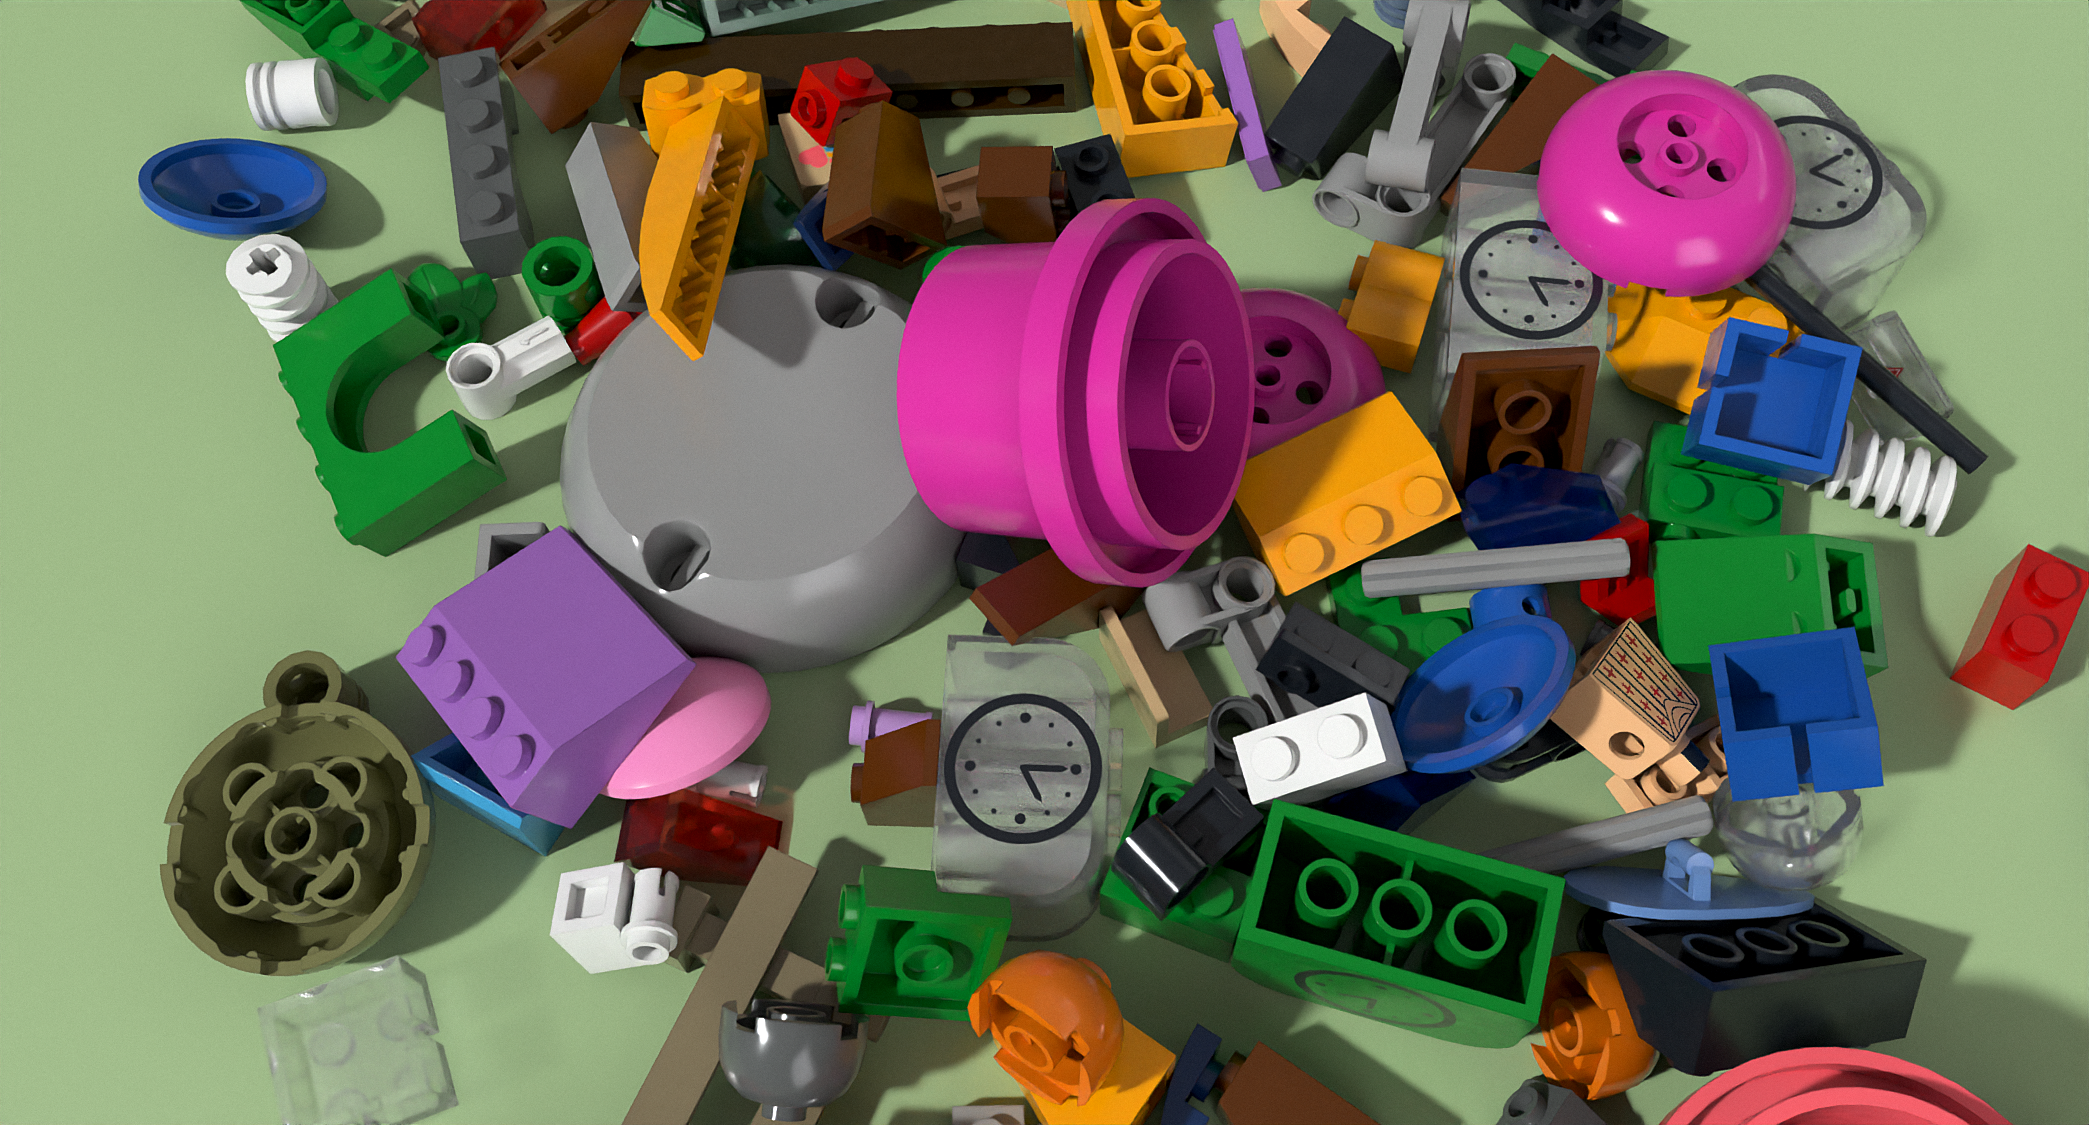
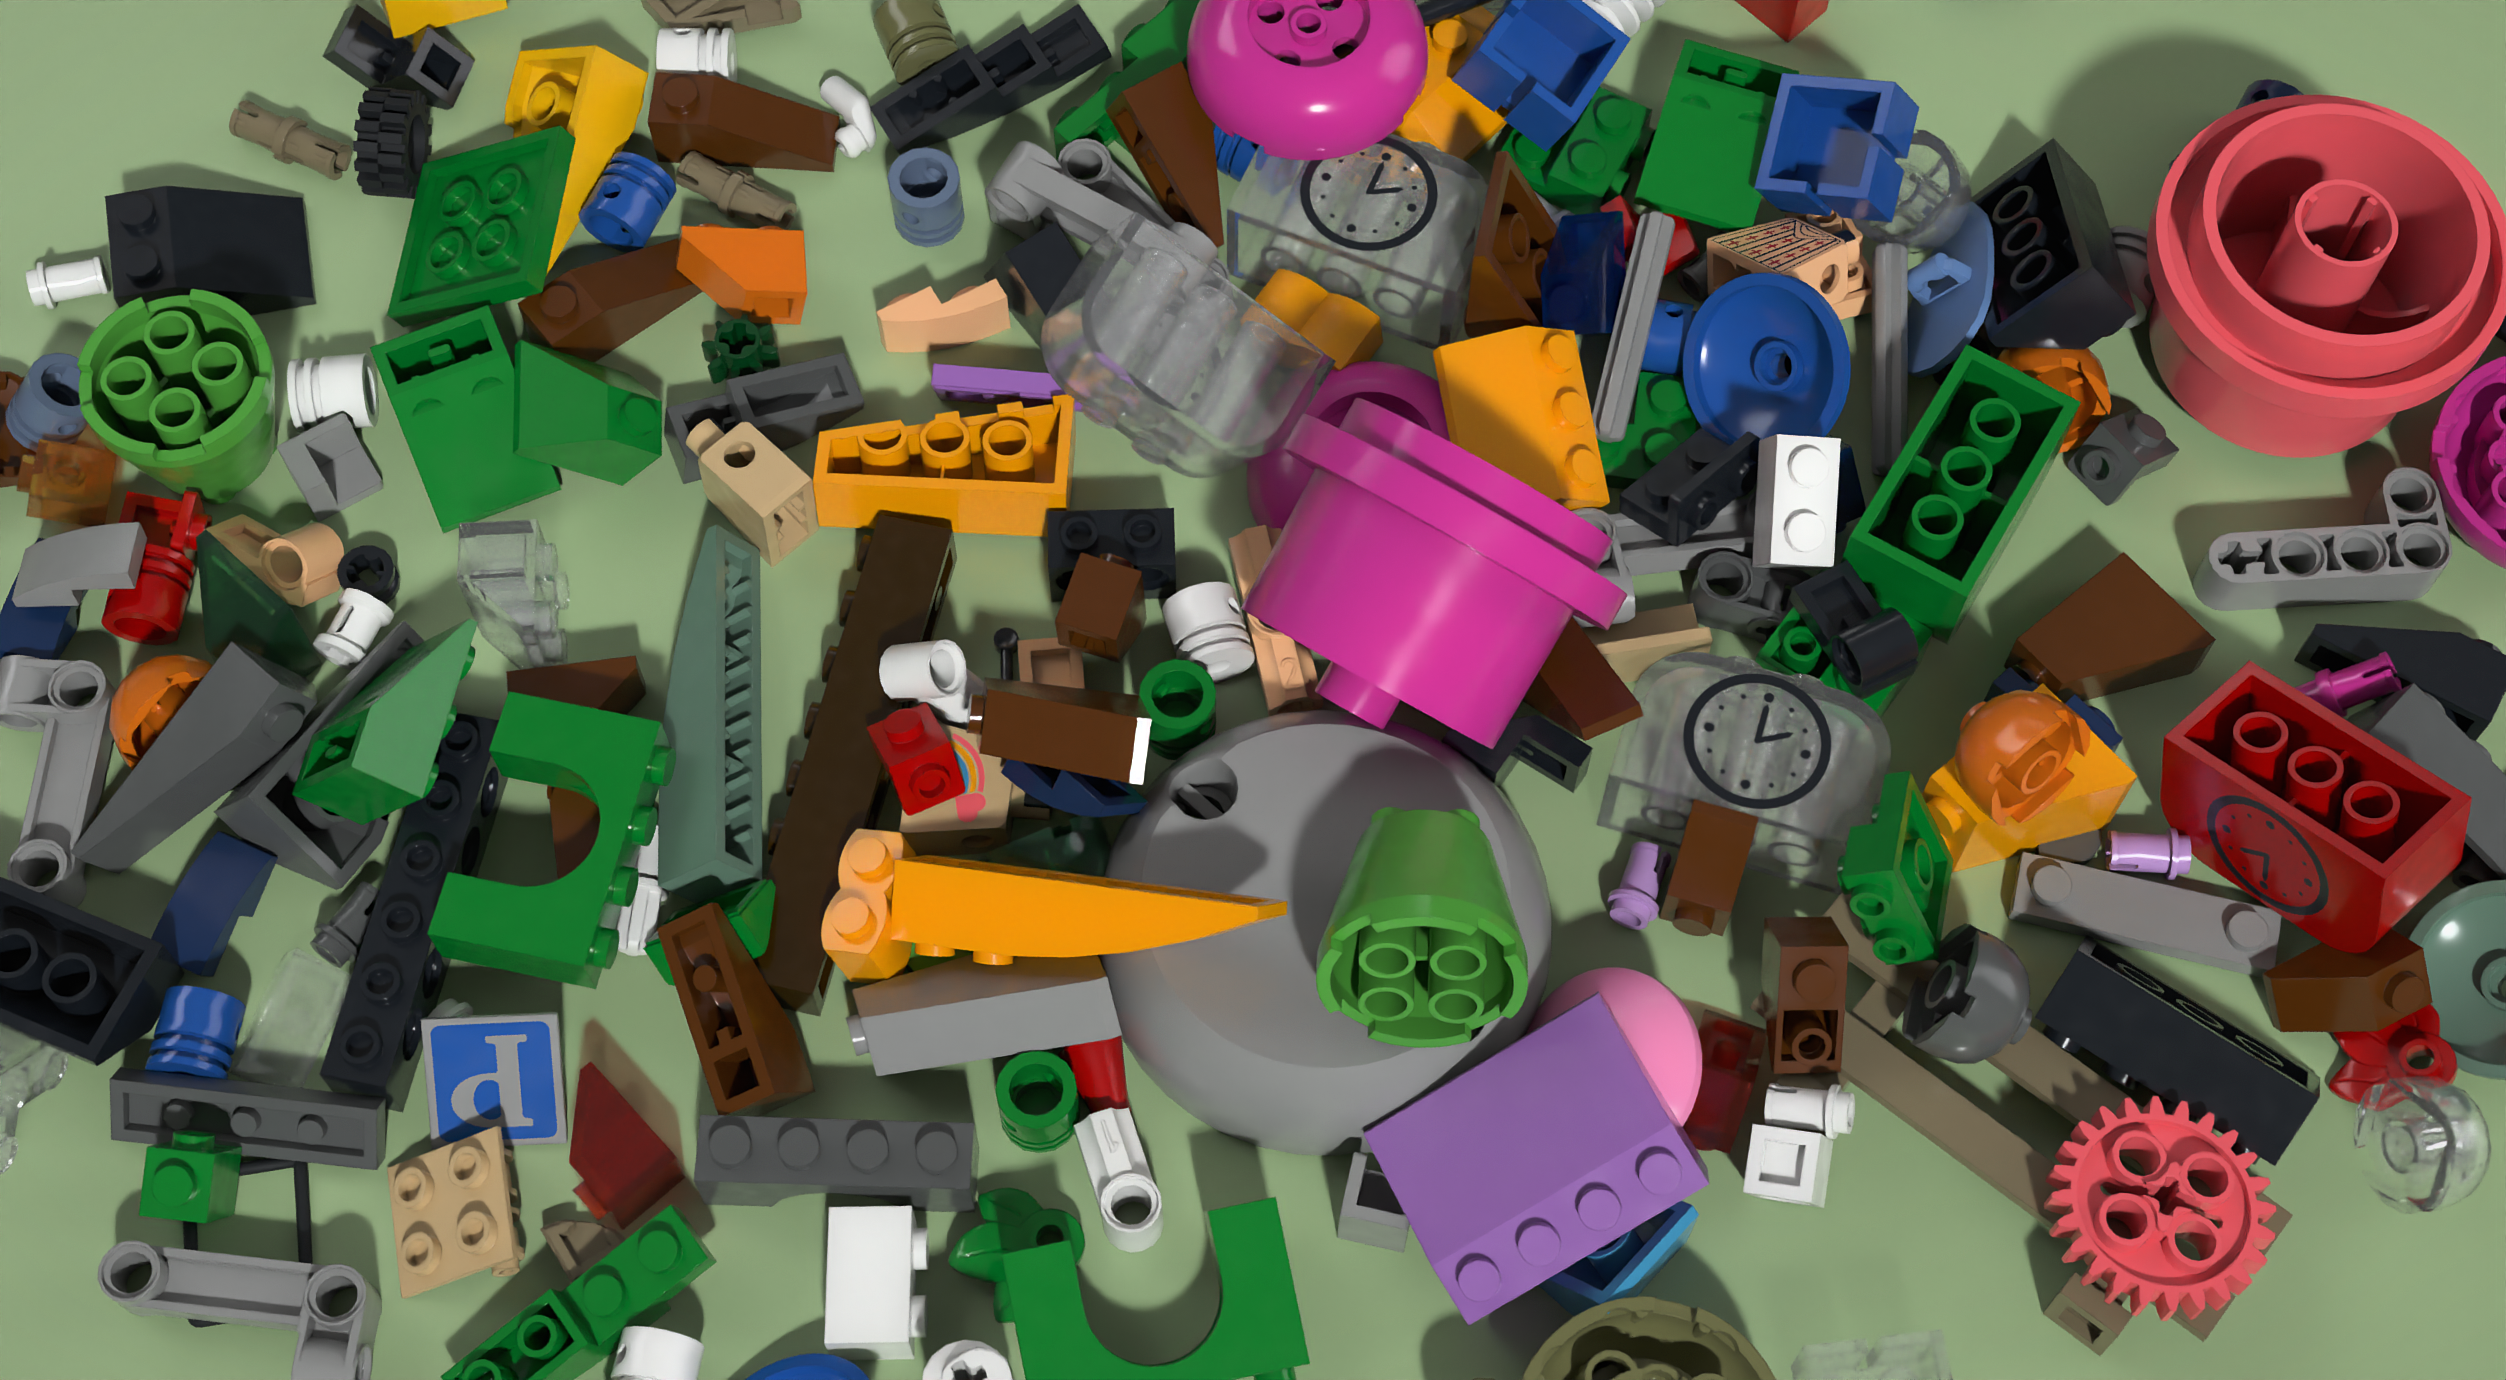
camera: 80 degrees left, 0 degrees up
(391, 214) = (873, 1283): none -> white brick
(708, 473) = (1422, 932): none -> bright green cone
(771, 880) = (1804, 993): none -> reddish brown slope
(924, 103) = (931, 674): none -> white piece
(1289, 165) = (1177, 355): none -> clear brick

